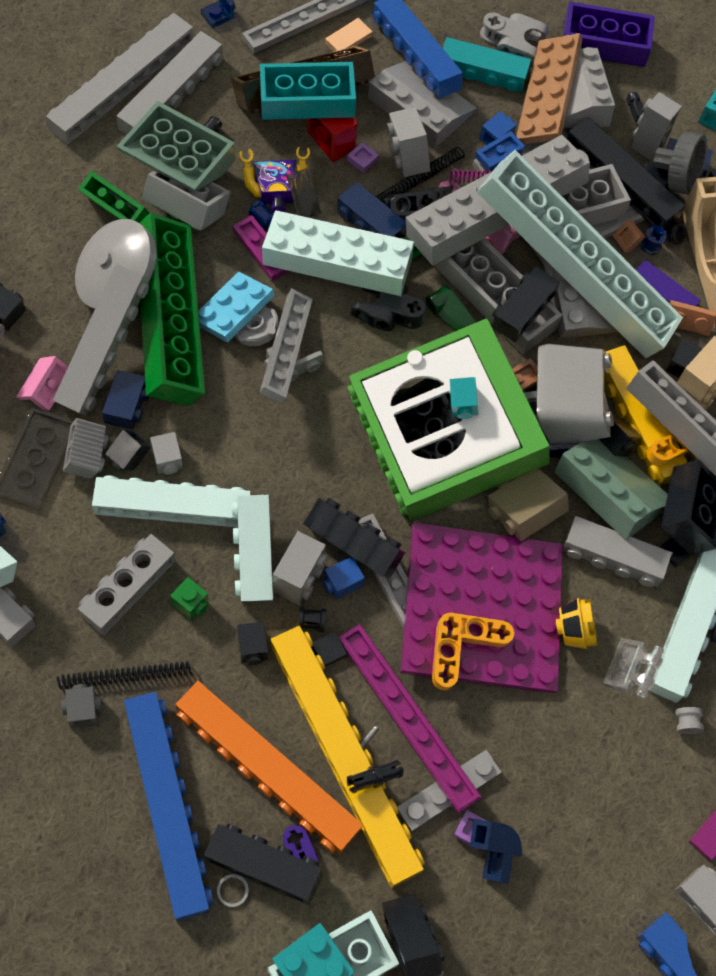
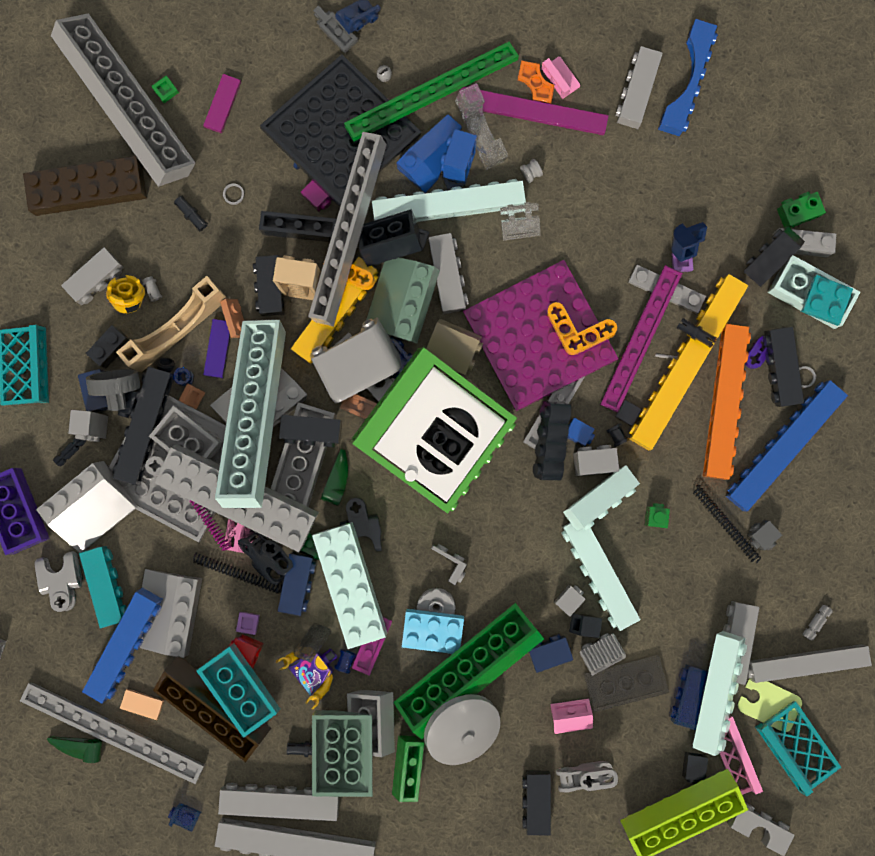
camera: 110 degrees left, 20 degrees up
(101, 340) = (526, 696): light grey brick -> none
(105, 617) = (703, 563): light grey brick -> none
(252, 643) = (658, 460): black brick -> none
(286, 346) = (445, 572): light grey plate -> none
(408, 142) = (220, 595): light grey brick -> none
(464, 397) = (425, 422): teal brick -> none
(496, 128) = (159, 540): blue brick -> none
(498, 150) = (181, 526): blue plate -> none
(549, 89) = (99, 522): medium nougat plate -> none
(577, 624) = (516, 269): yellow cone -> none
(622, 438) = (363, 311): black brick -> none

